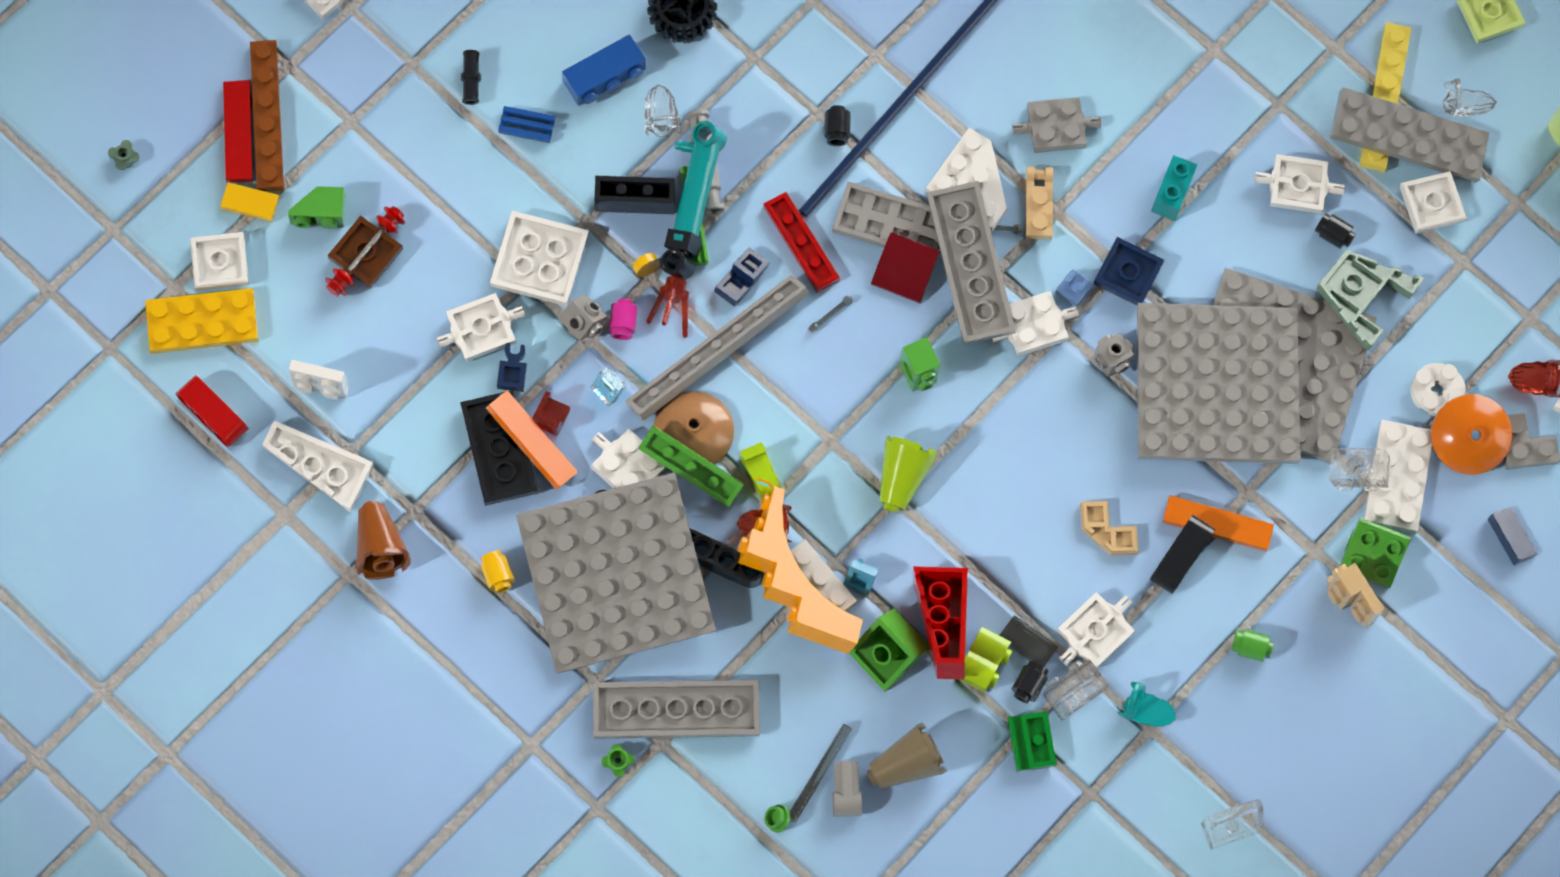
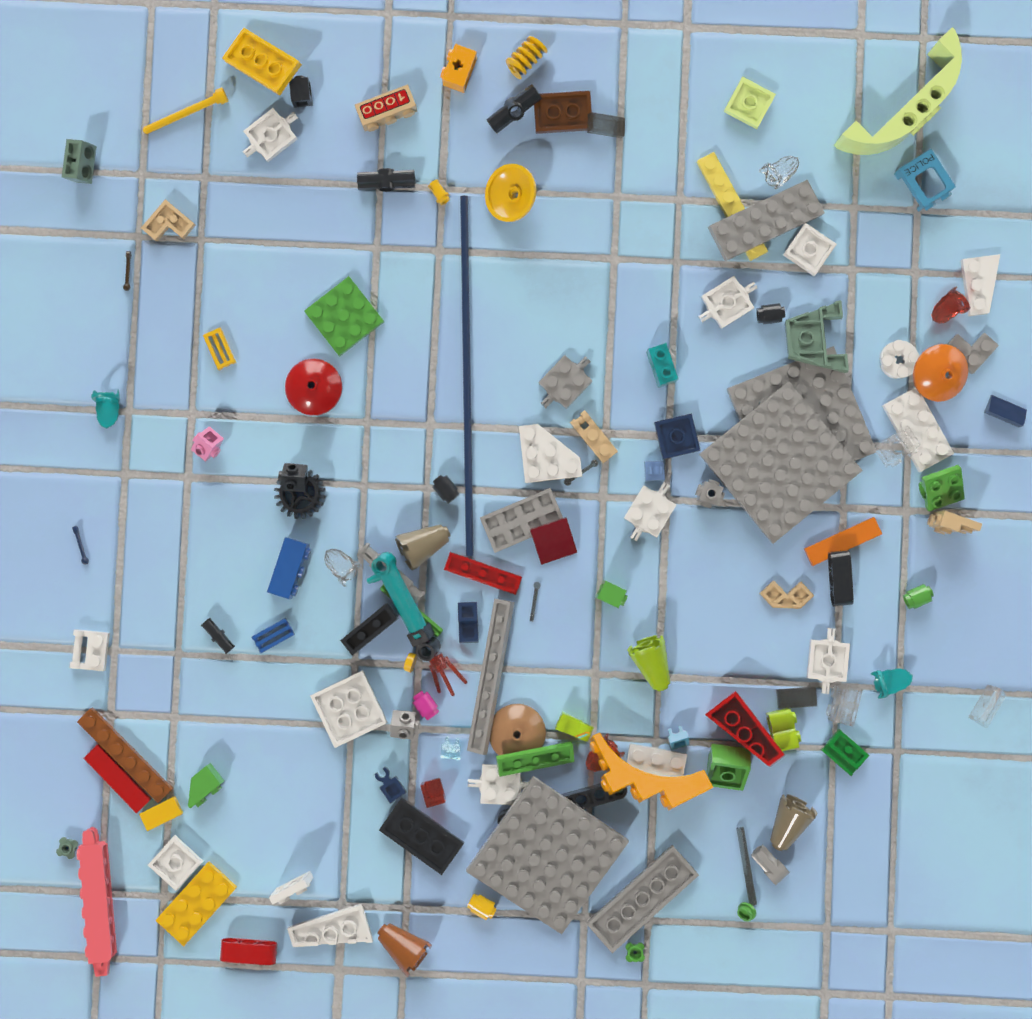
camera: 30 degrees left, 15 degrees up
(104, 231) = (97, 901): none -> coral hinge
(365, 251) = (250, 788): reddish brown plate -> none
(480, 327) = (351, 776): white plate -> none
(531, 440) = (436, 819): tile -> none
(764, 156) = (421, 544): none -> dark tan cone
(971, 262) = (588, 509): light grey plate -> none
(1030, 682) = (817, 721): black brick -> none

